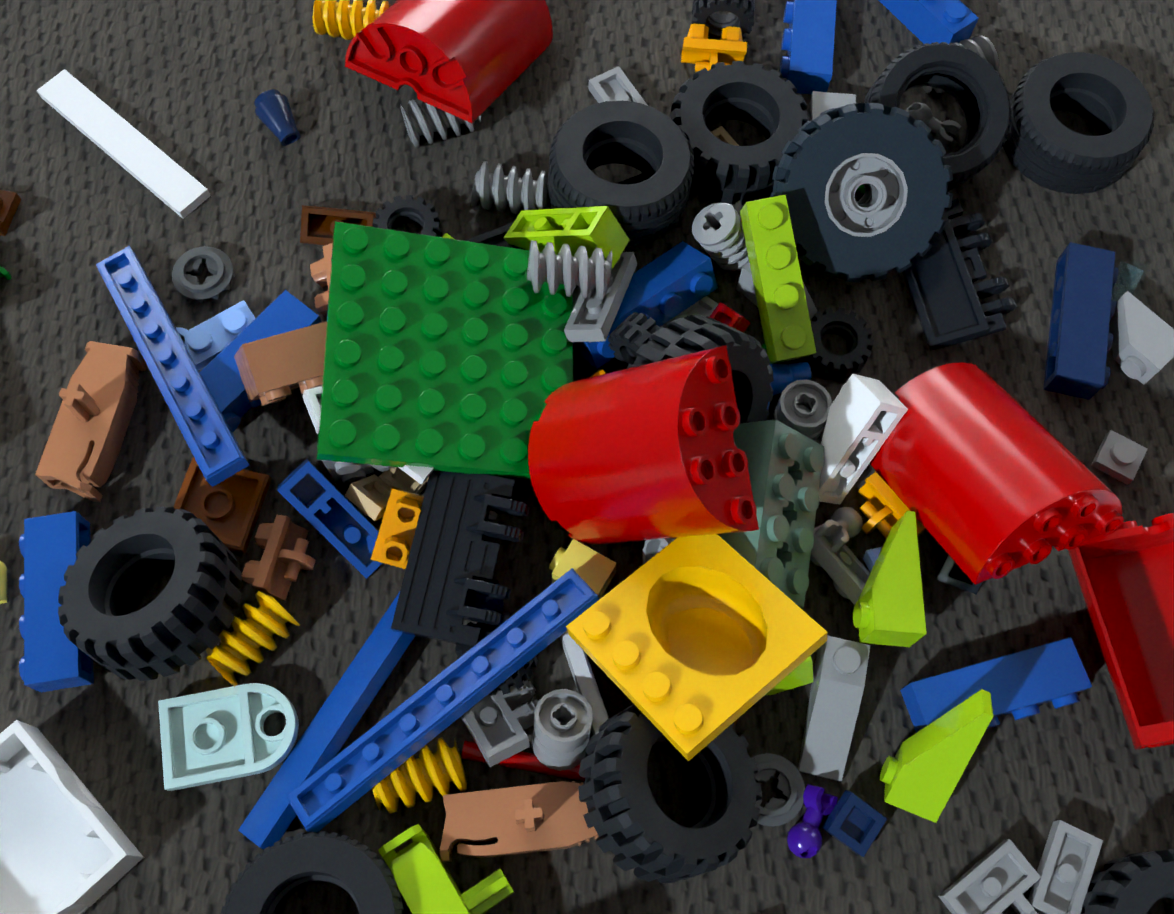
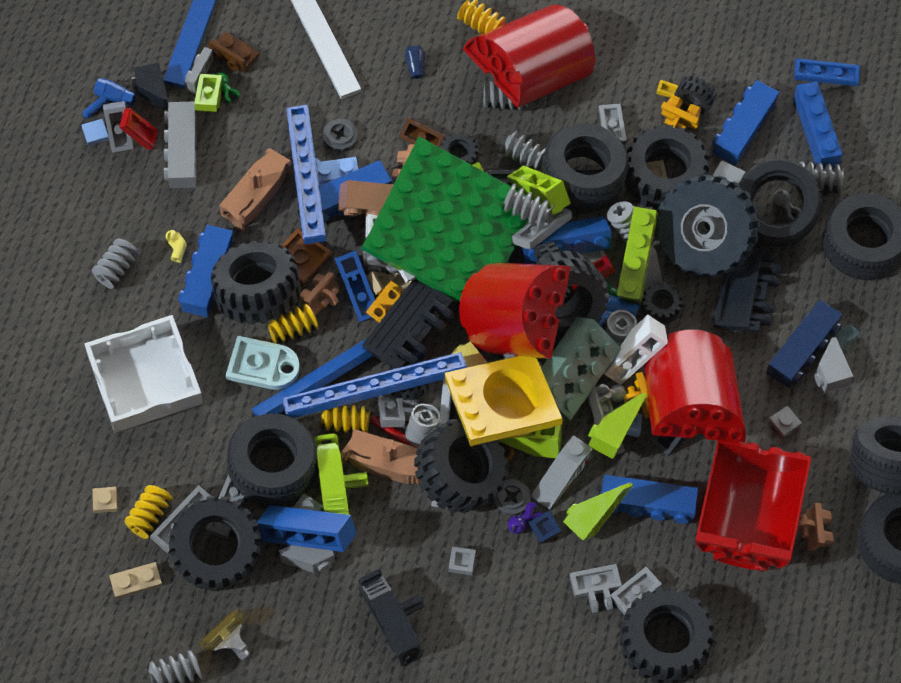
camera: 25 degrees right, 5 degrees down
(673, 23) = (666, 89): none -> yellow piece

